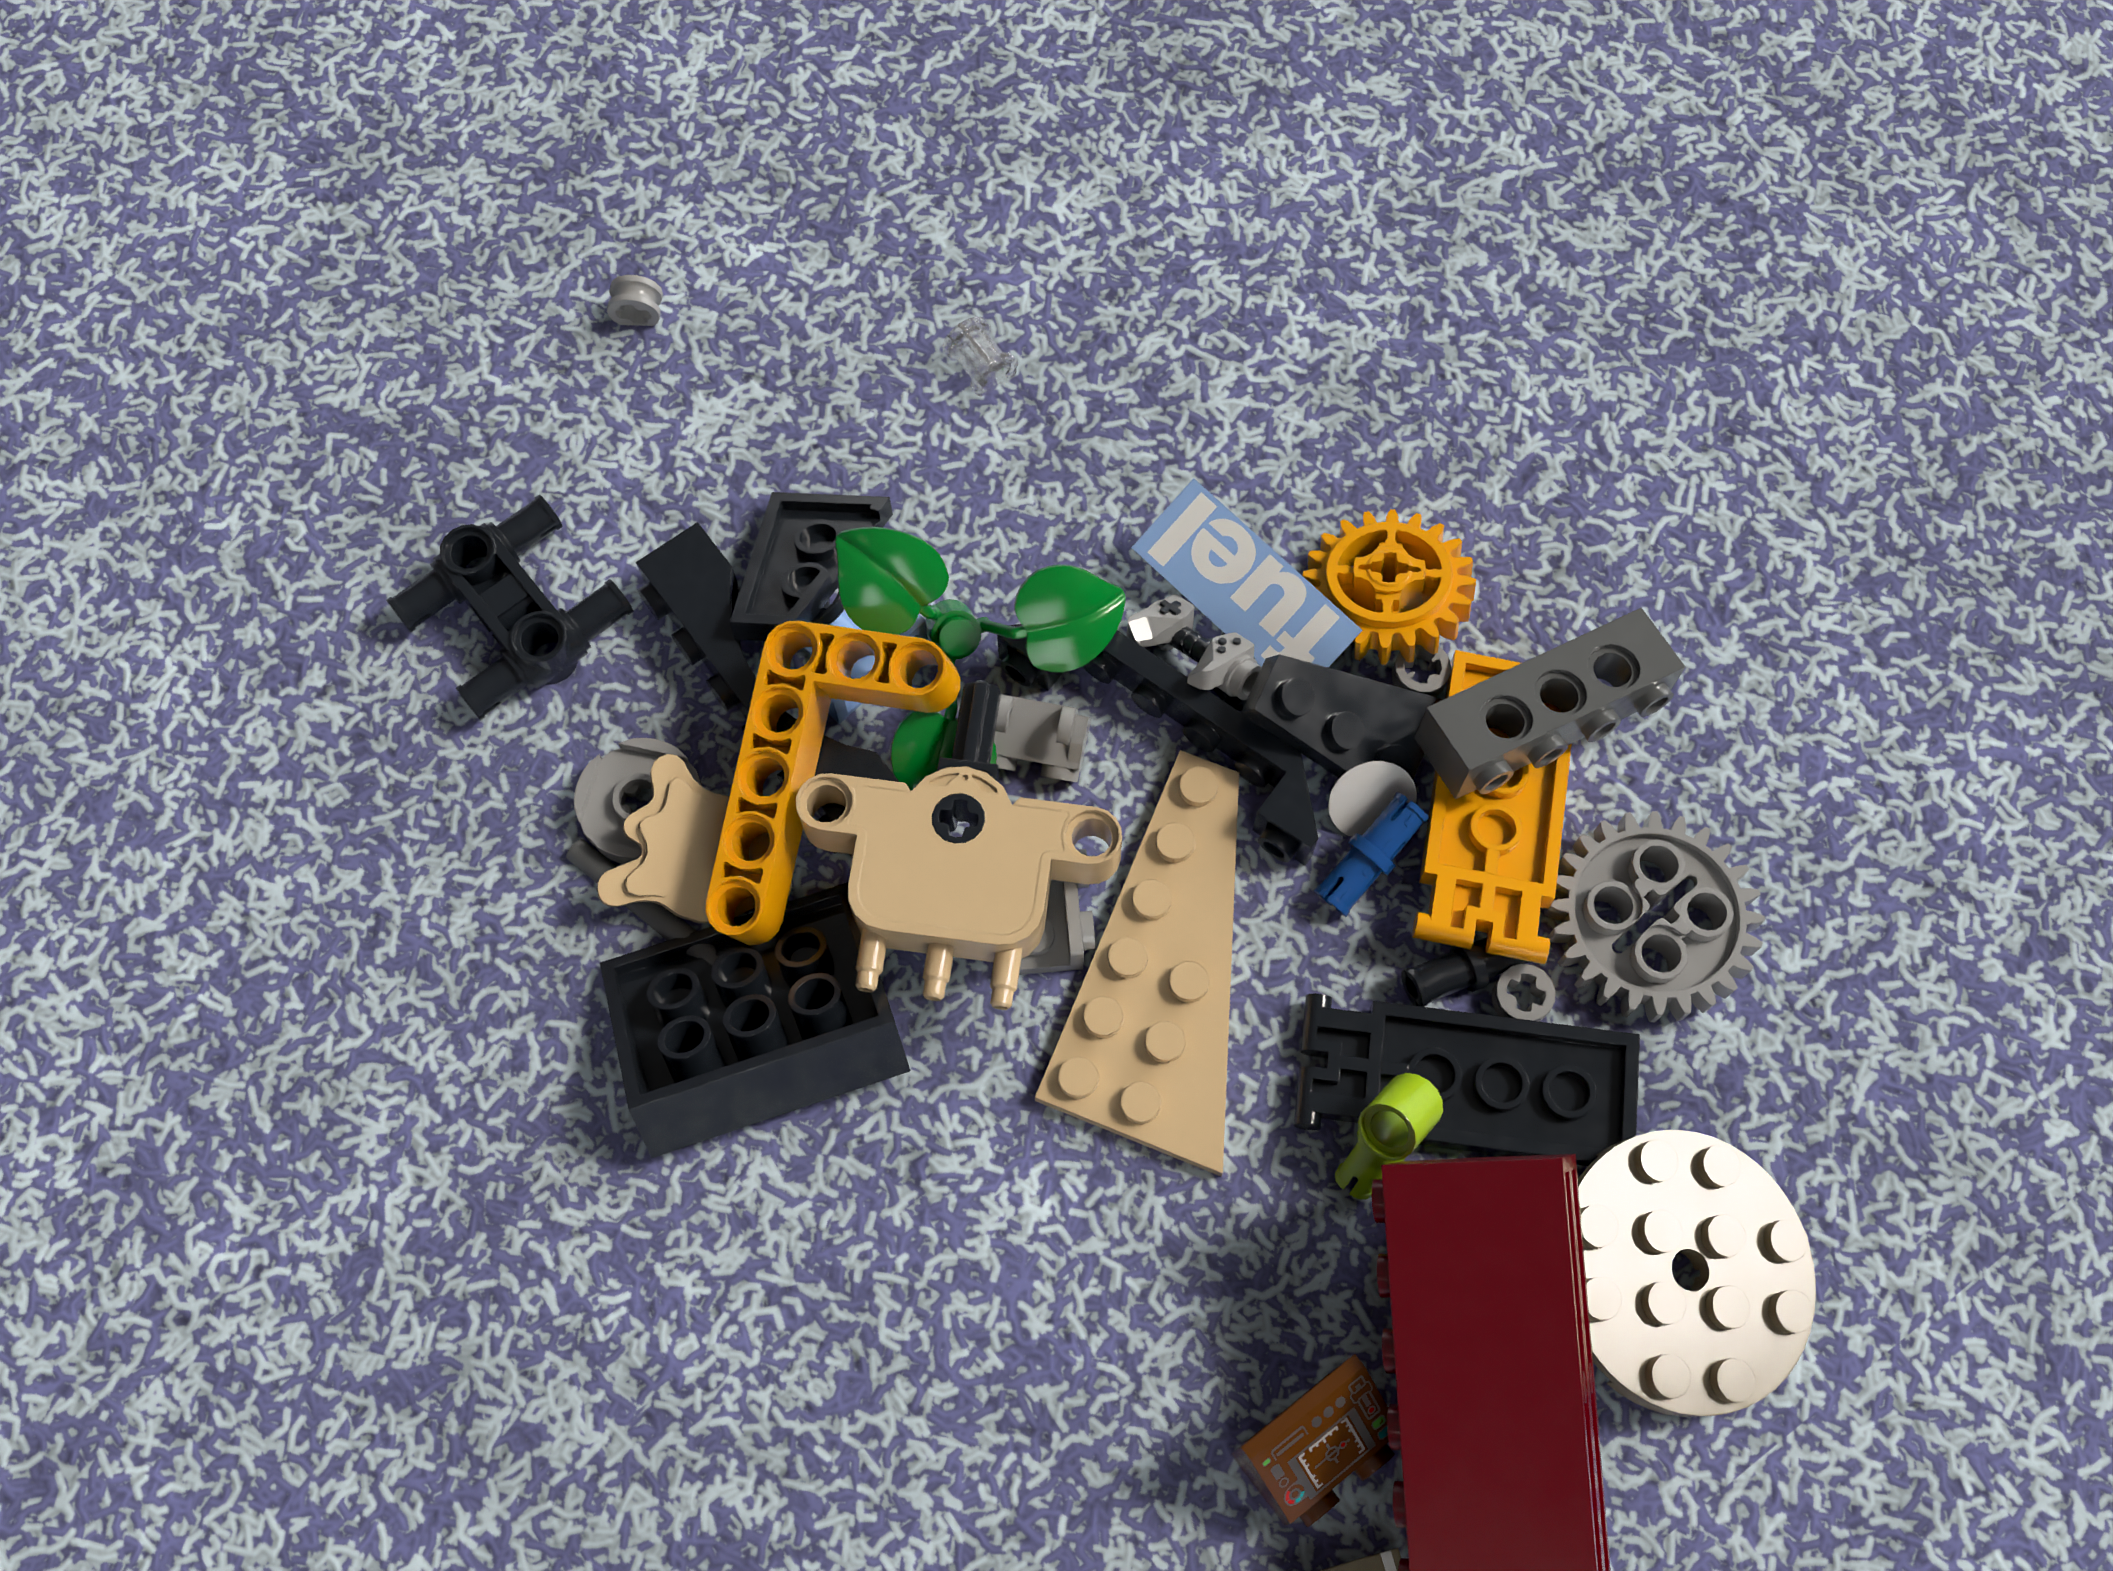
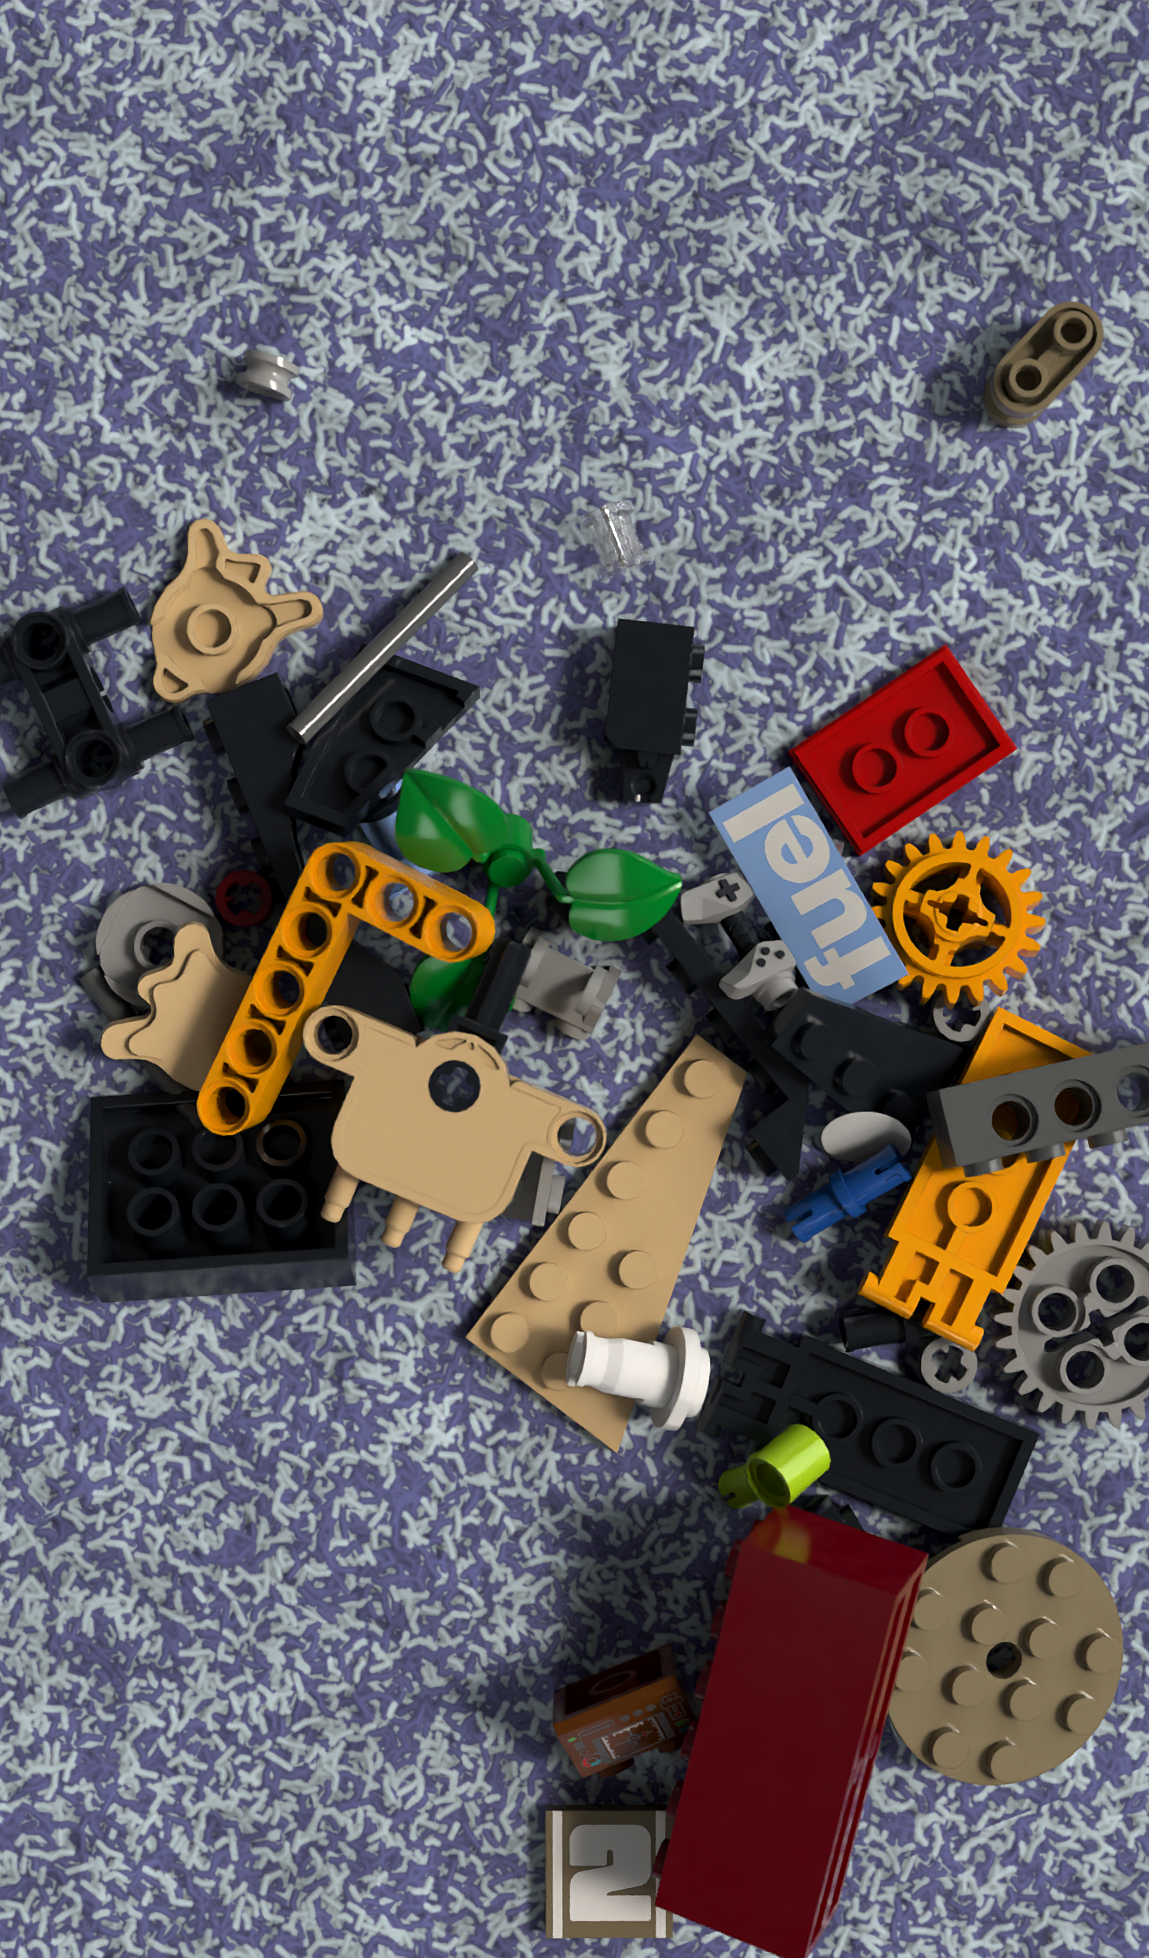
camera: 10 degrees right, 20 degrees up
(635, 505) = (218, 622): none -> tan tile
(709, 722) = (245, 879): none -> dark red bush
(789, 487) = (382, 648): none -> dark grey piece
(1049, 474) = (648, 703): none -> black hinge
(1241, 1071) = (661, 1375): none -> white piece
(1295, 463) = (902, 750): none -> red tile
(1309, 135) = (1042, 364): none -> dark tan brick

